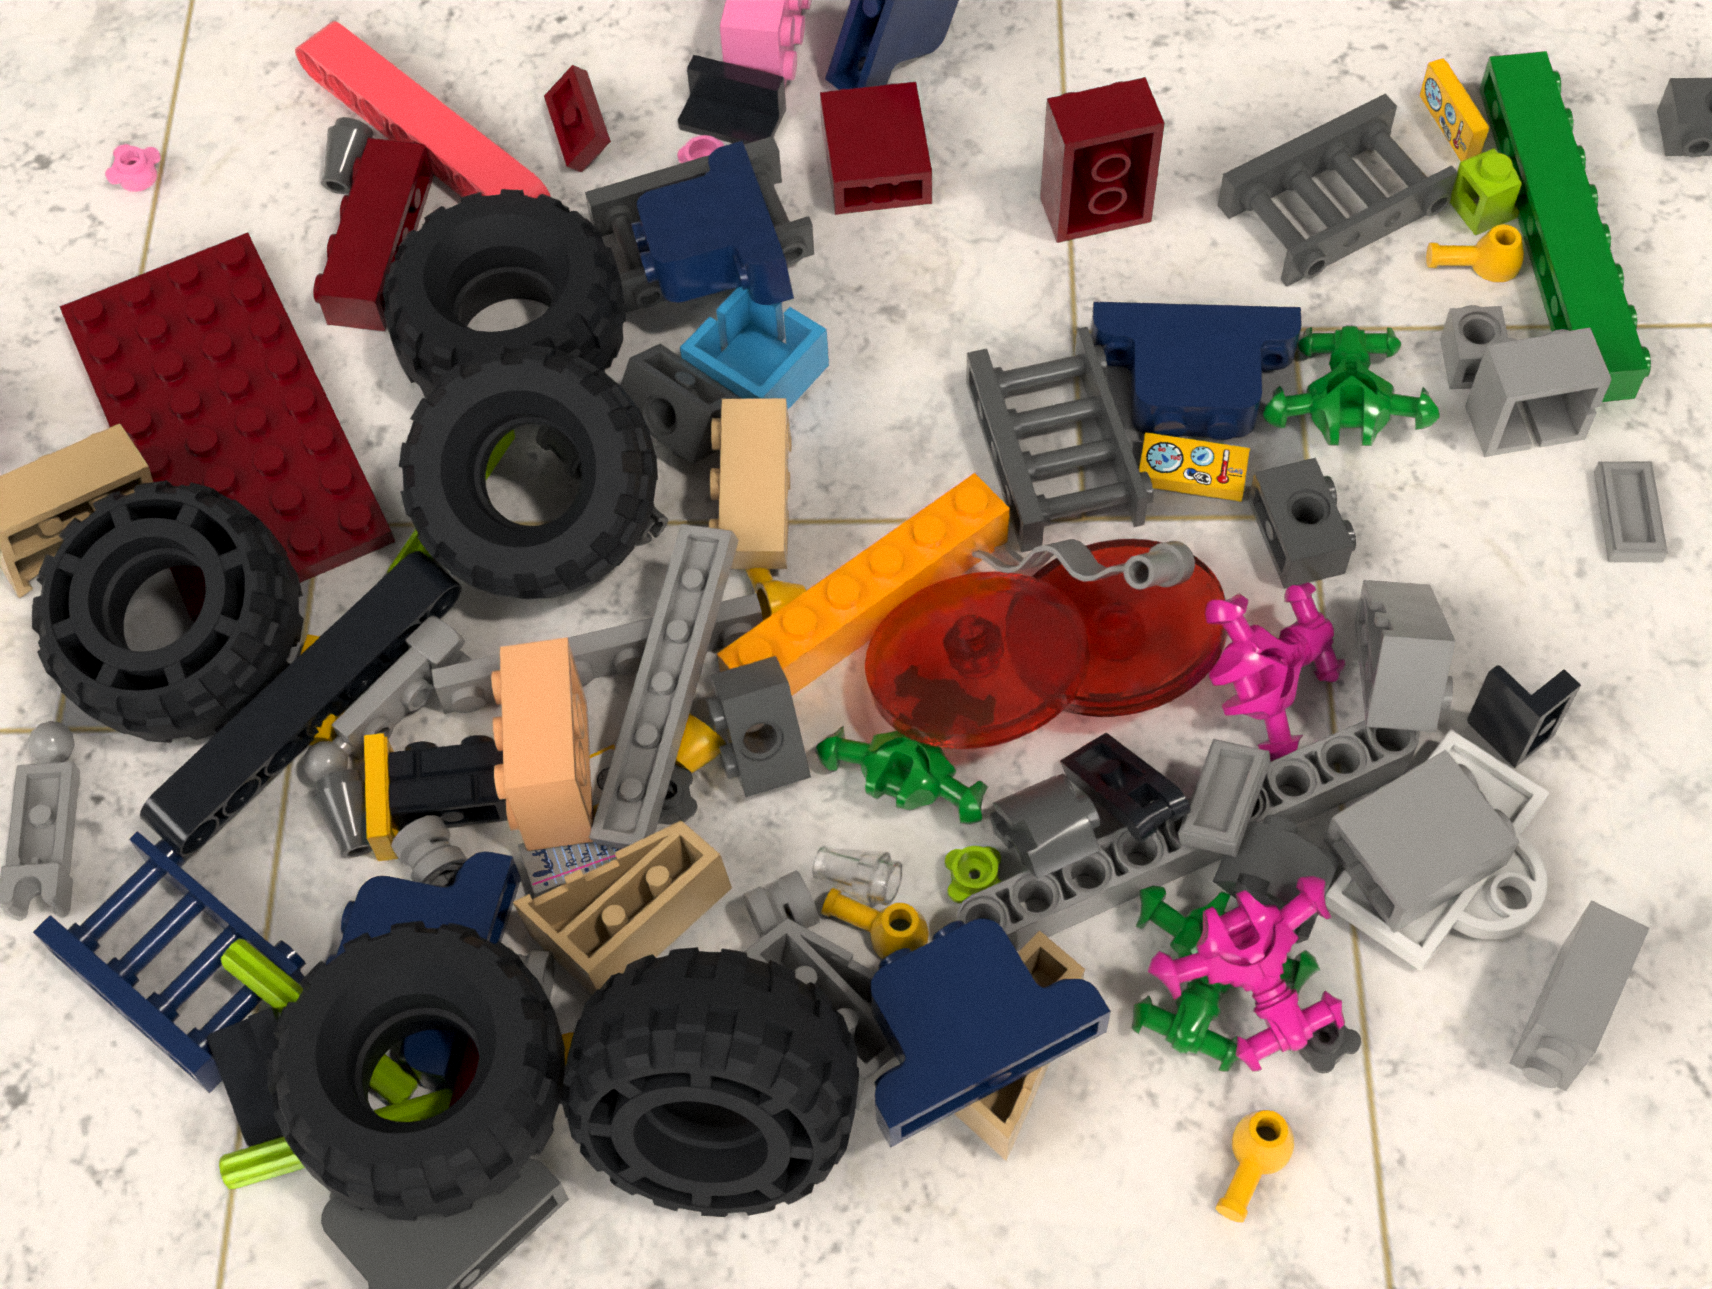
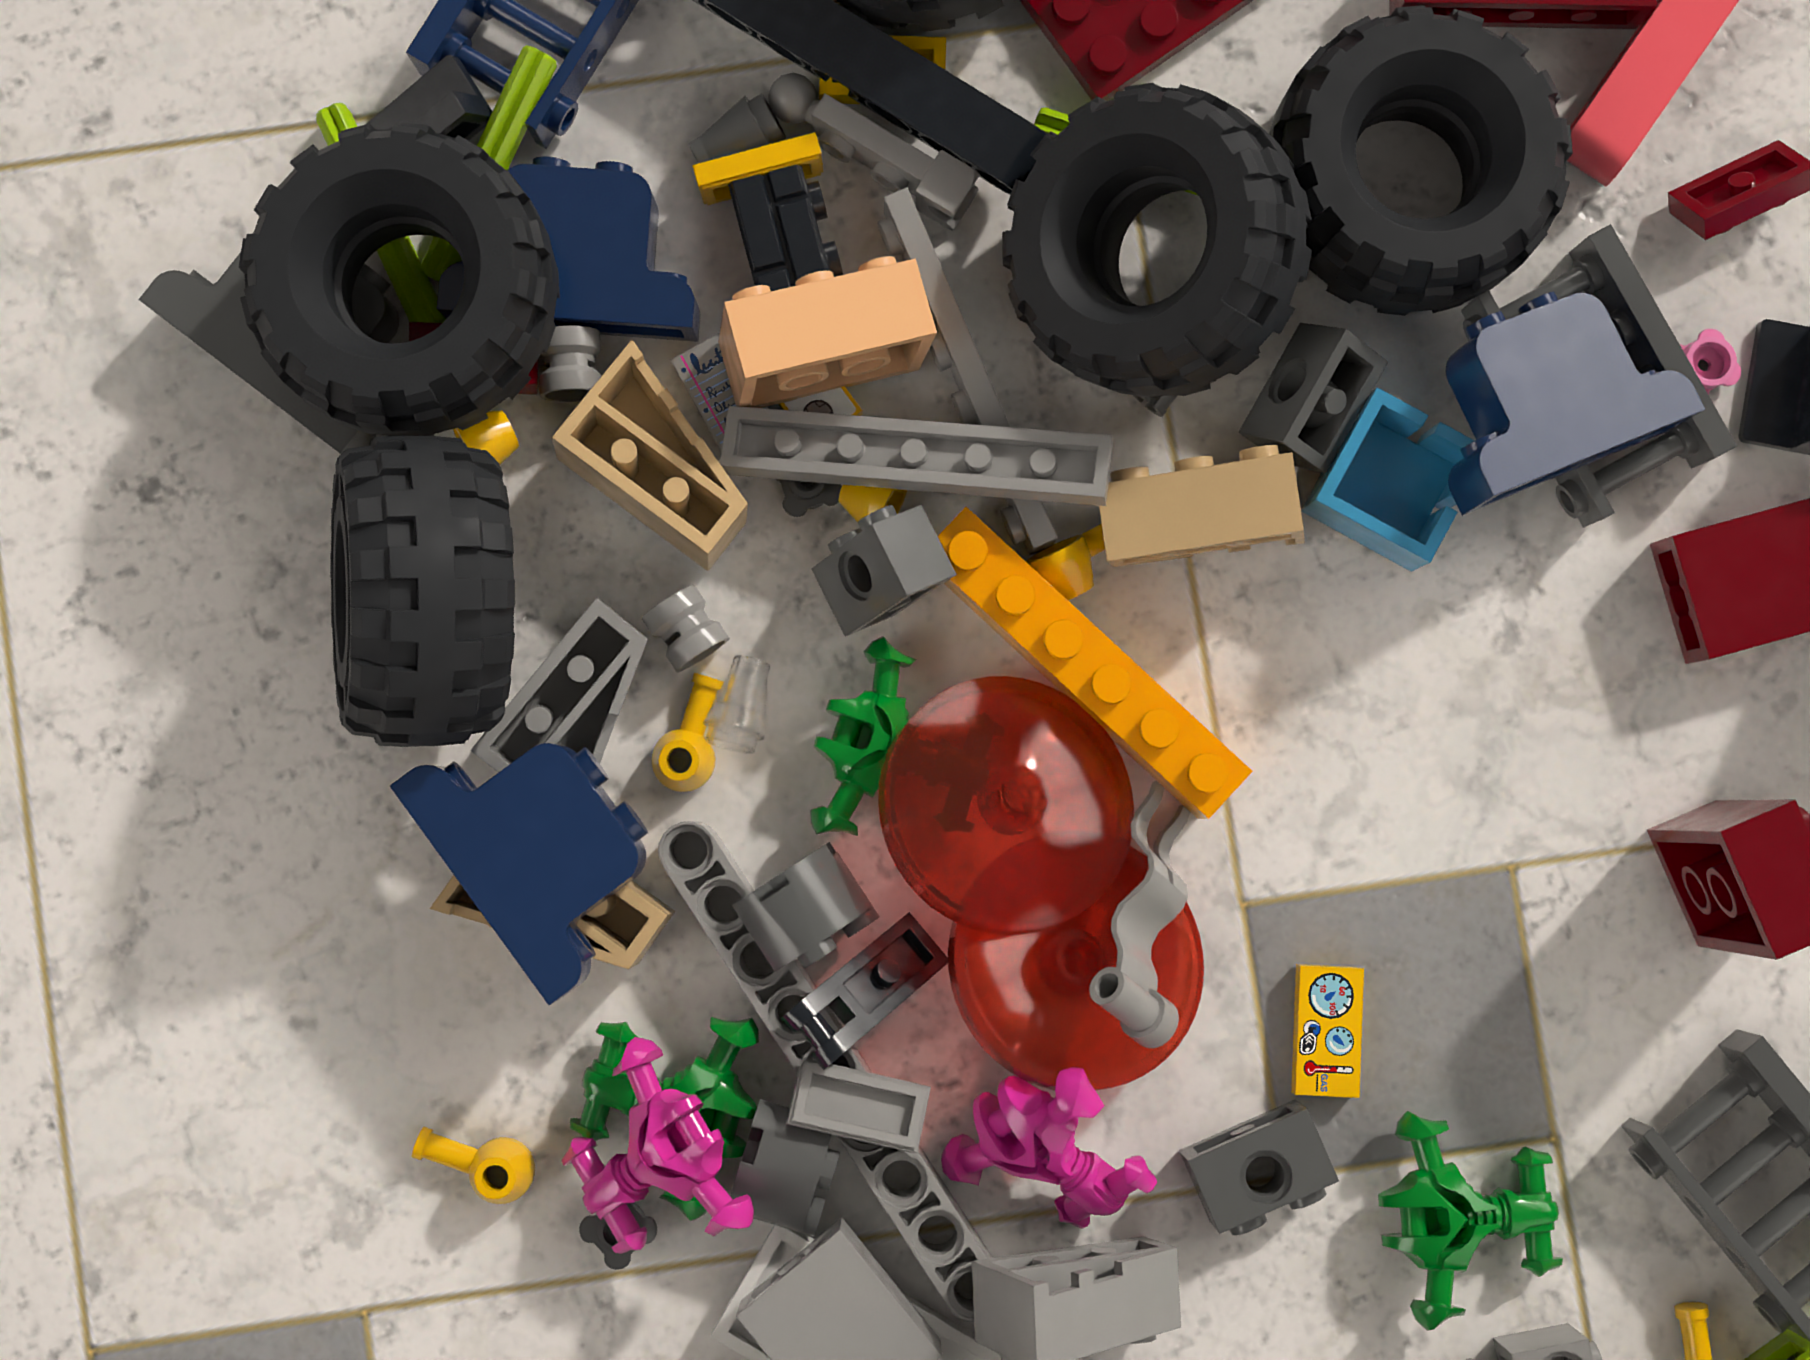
camera: 75 degrees right, 25 degrees up
(428, 852) = (697, 238): light grey wheel -> none
(971, 858) = (751, 849): lime plate -> none
(1019, 469) = (1346, 799): dark grey fence -> none
(1196, 363) = (1472, 1022): dark blue brick -> none

